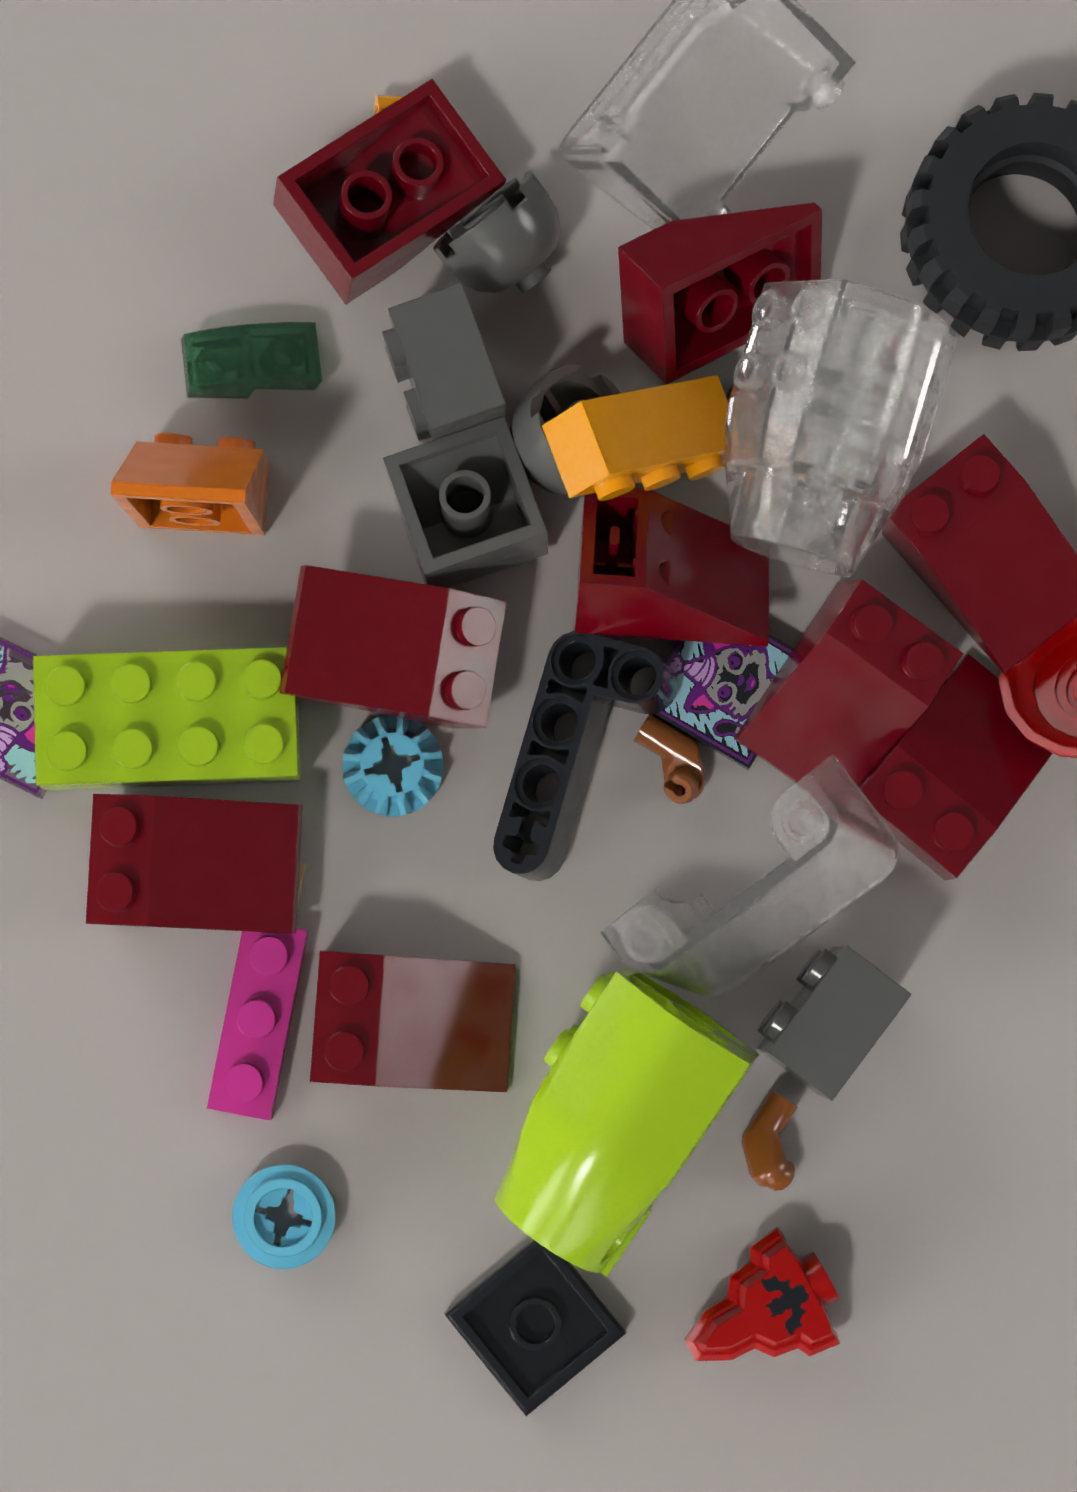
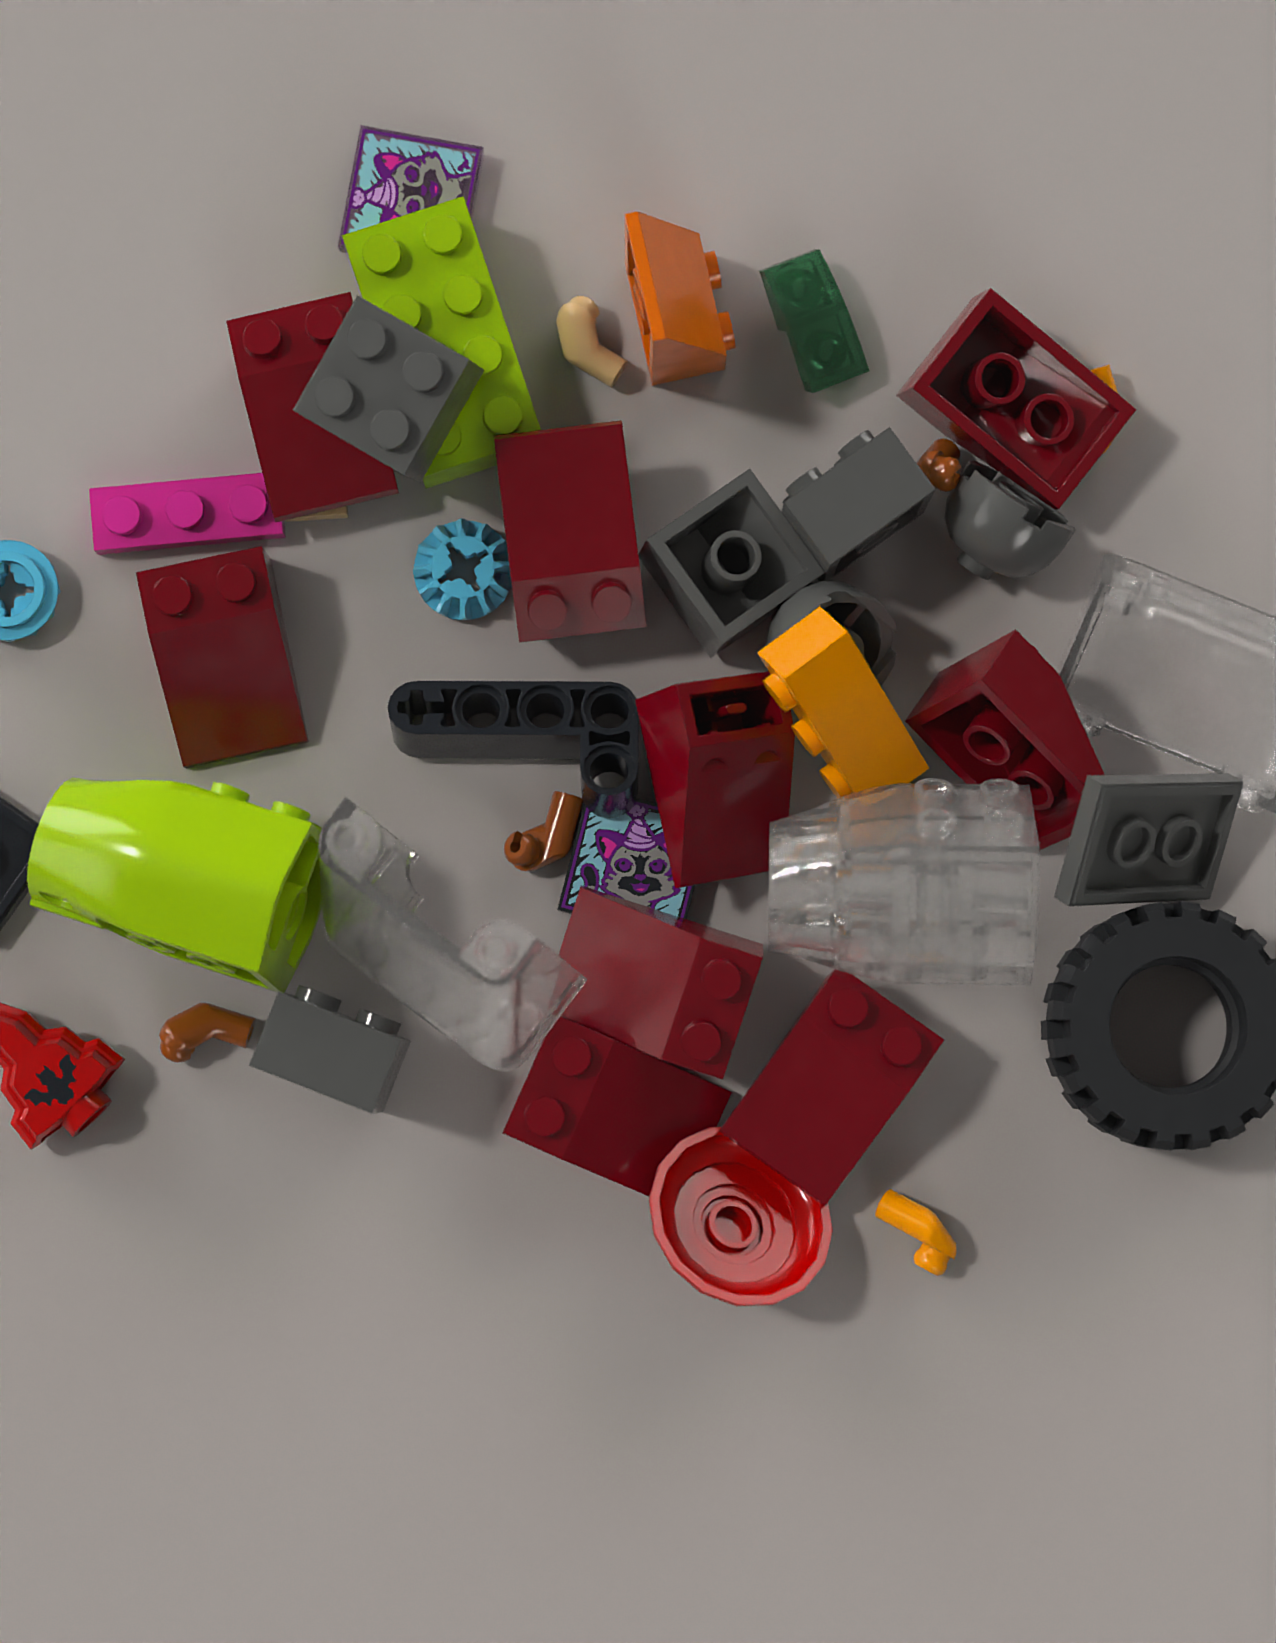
camera: 75 degrees right, 0 degrees up
(204, 589) = (580, 341): none -> tan arm
(208, 779) = (388, 389): none -> dark grey brick
(424, 279) = (941, 463): none -> dark orange arm
(848, 186) = (1148, 838): none -> dark grey tile

